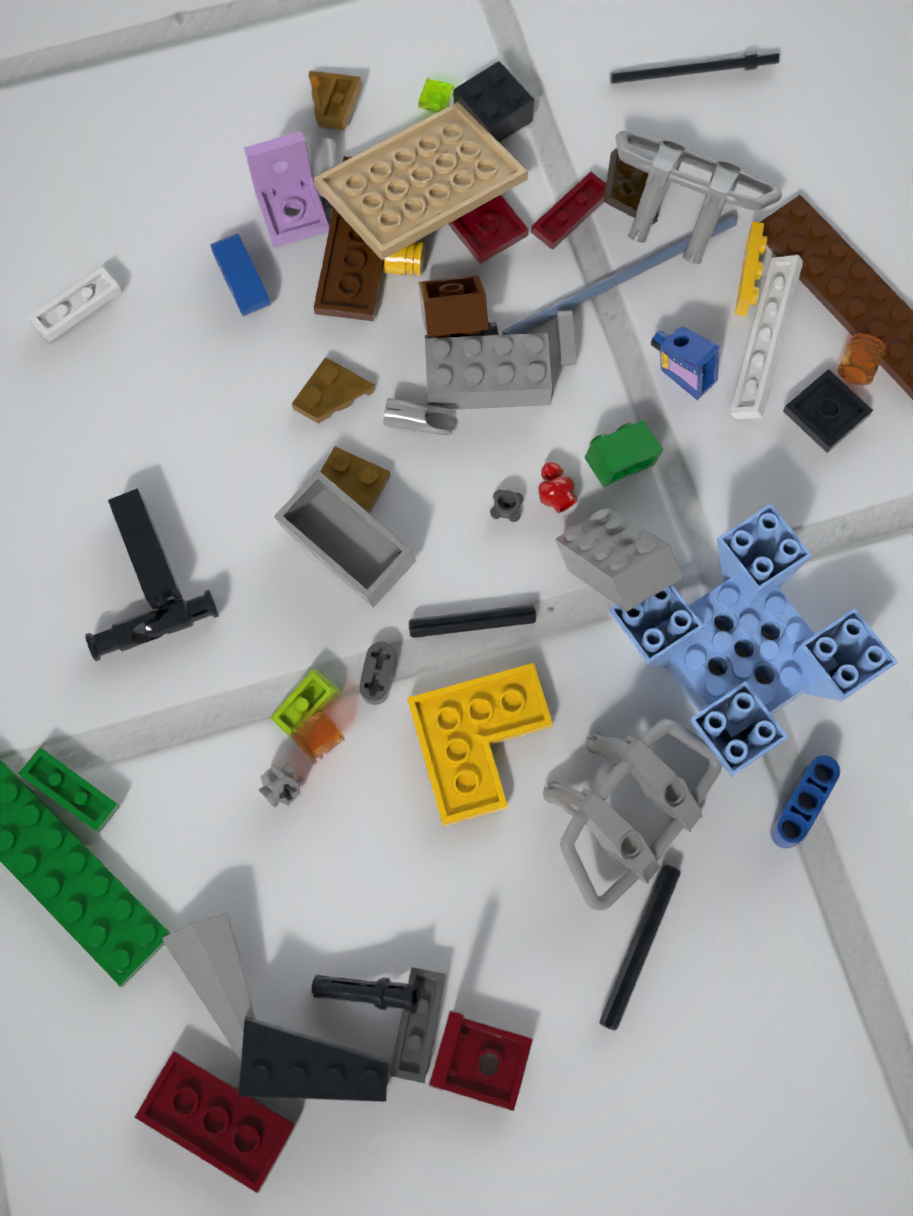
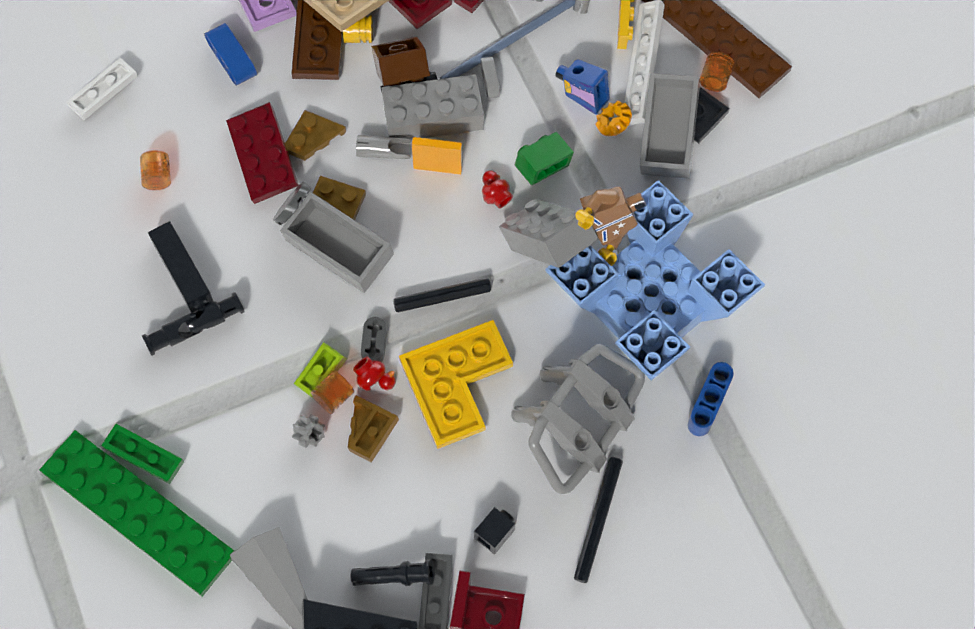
camera: 10 degrees left, 5 degrees down
(127, 418) = (155, 170): none -> clear orange piece
(265, 409) = (262, 153): none -> dark red plate
(293, 480) = (291, 203): none -> dark grey tile
(359, 790) = (369, 428): none -> pearl gold wing
(372, 715) = (371, 372): none -> red animal
(486, 436) = (437, 155): none -> light orange tile
(504, 497) = (458, 200): dark grey plate -> none
(504, 946) = (495, 530): none -> black brick
(702, 550) = (610, 216): none -> medium nougat torso
(723, 418) = (616, 125): none -> light orange gear
(793, 427) = (669, 125): none -> light grey piece

